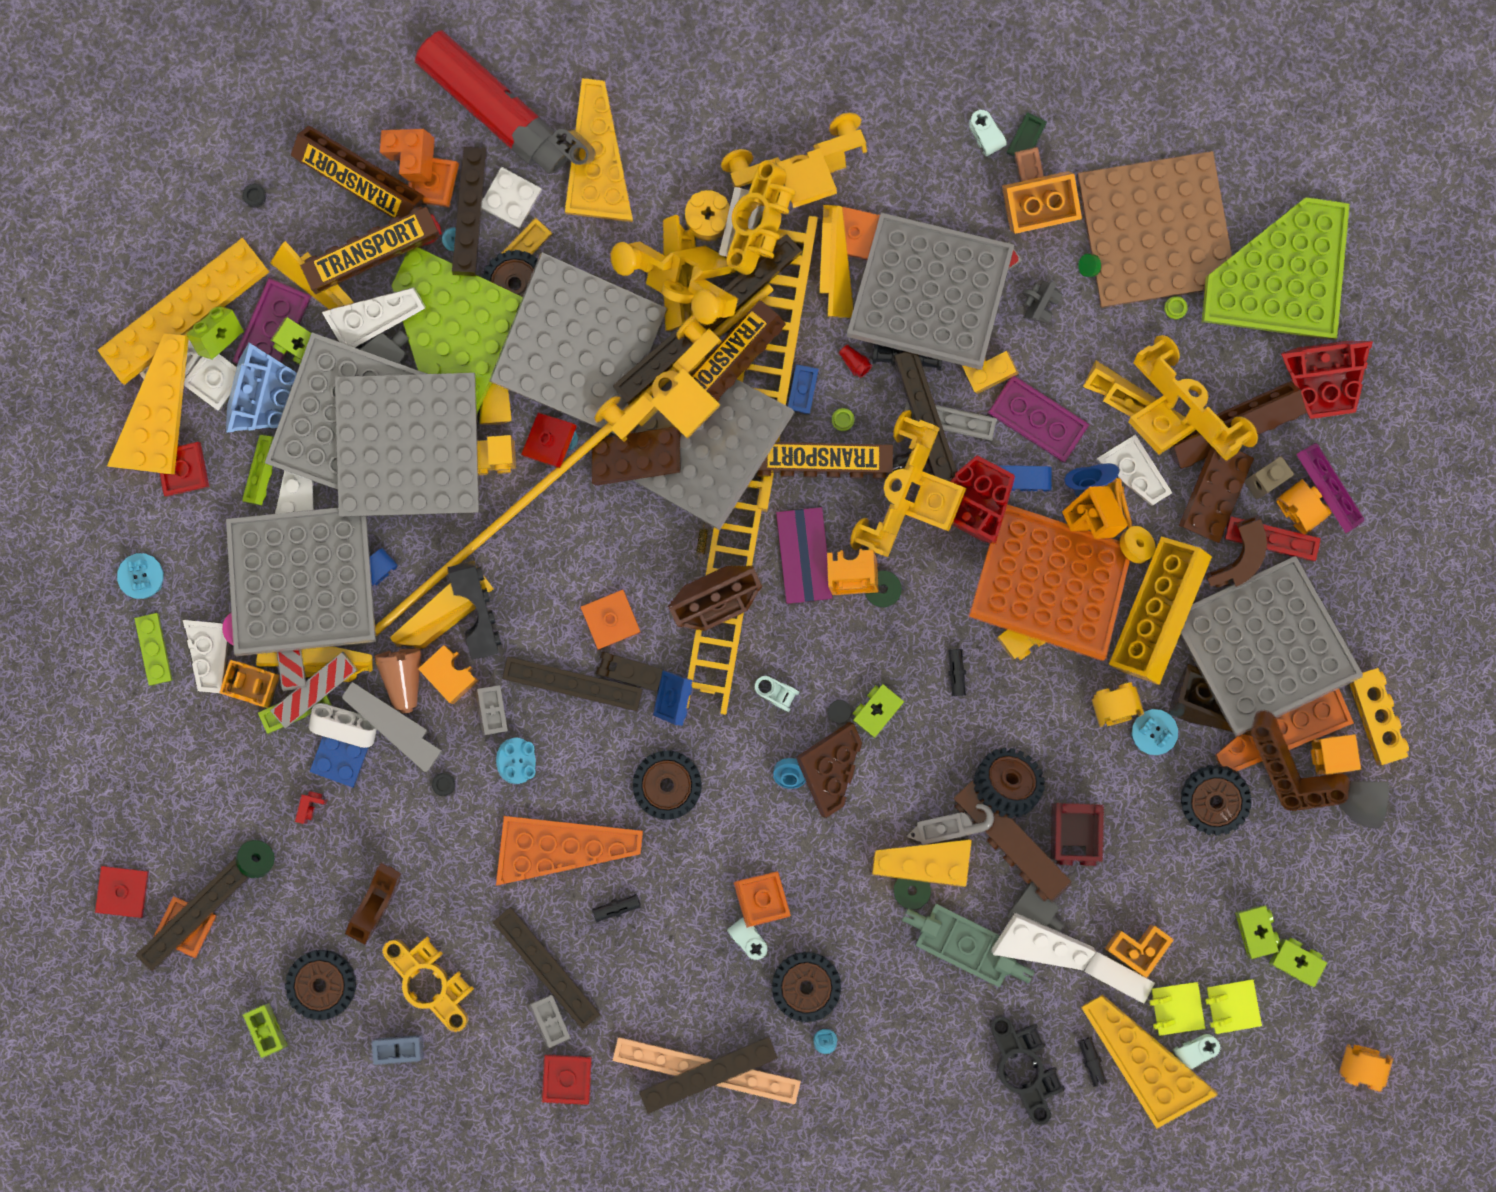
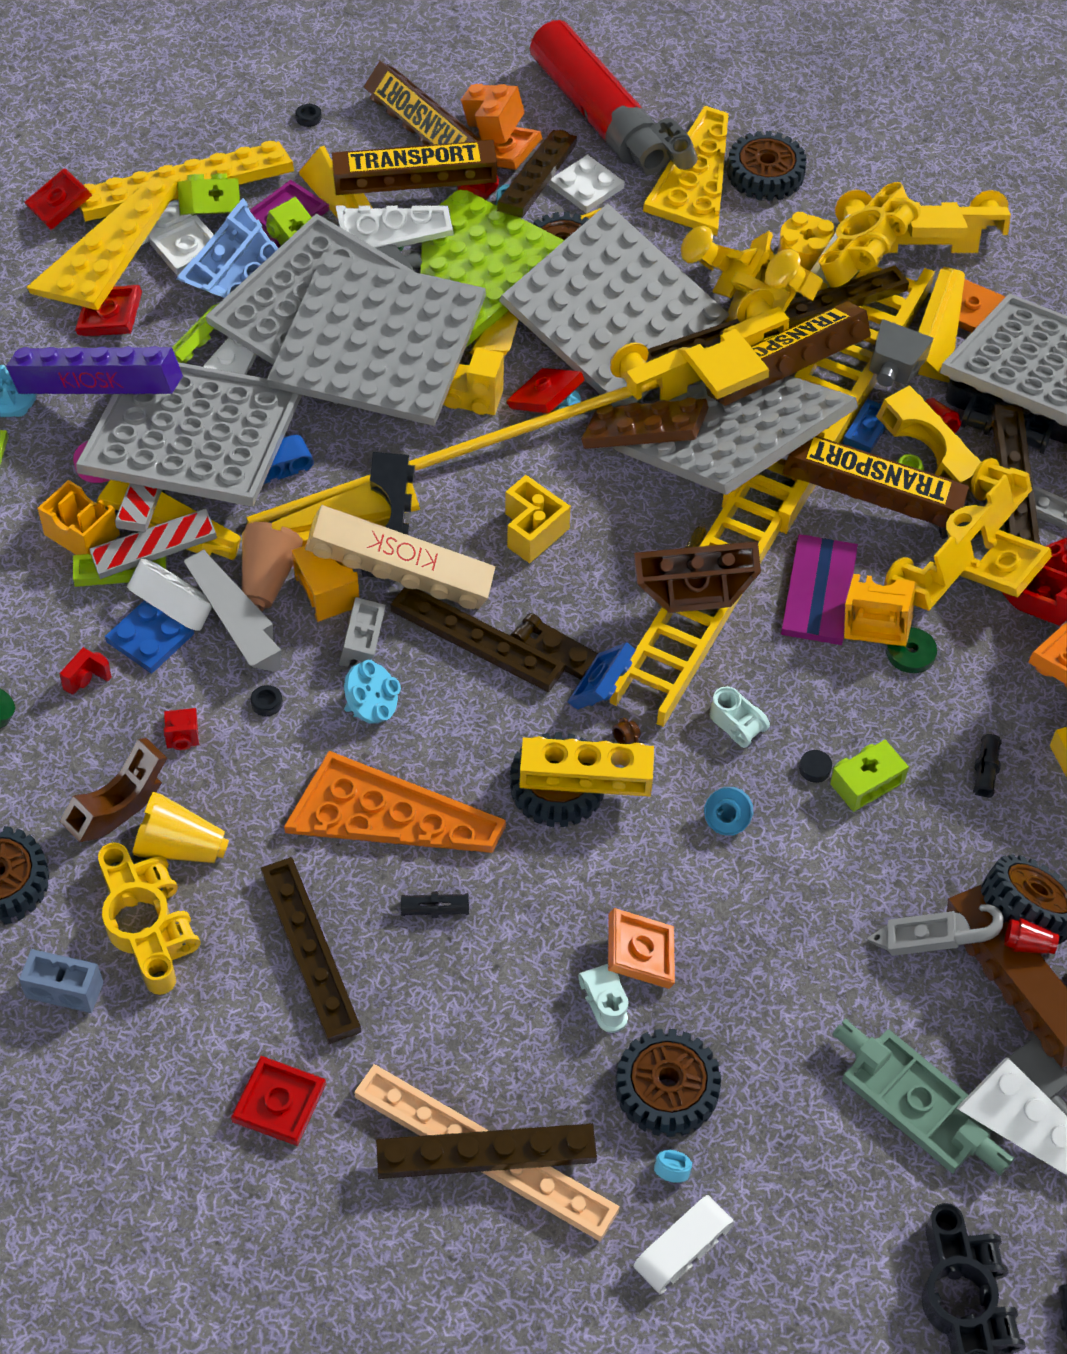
camera: 15 degrees right, 30 degrees down
(92, 369) = (58, 198): none -> red plate
(207, 556) = (95, 370): none -> dark purple brick
(208, 654) = (44, 475): white wing -> none
(394, 828) = (181, 728): none -> red bracket
(428, 917) = (177, 833): none -> yellow cone
(497, 651) = (400, 558): none -> tan brick
(549, 1021) = (285, 1012): light grey hinge -> none
(586, 568) = (537, 518): none -> yellow brick
(610, 619) = (551, 587): orange plate -> none
(648, 114) = (766, 165): none -> black wheel
(651, 795) = (573, 776): none -> yellow brick
(702, 729) = (627, 730): none -> reddish brown plate
(809, 327) = (898, 353): none -> dark grey torso
(829, 765) = (785, 819): reddish brown plate -> none
(847, 1091) = (683, 1242): none -> white beam
(878, 412) = (911, 416): none -> yellow arch
(911, 901) = (860, 994): dark green piece -> none
(930, 863) = (884, 971): yellow wedge -> none
(1013, 823) = (1030, 938): none -> red cone

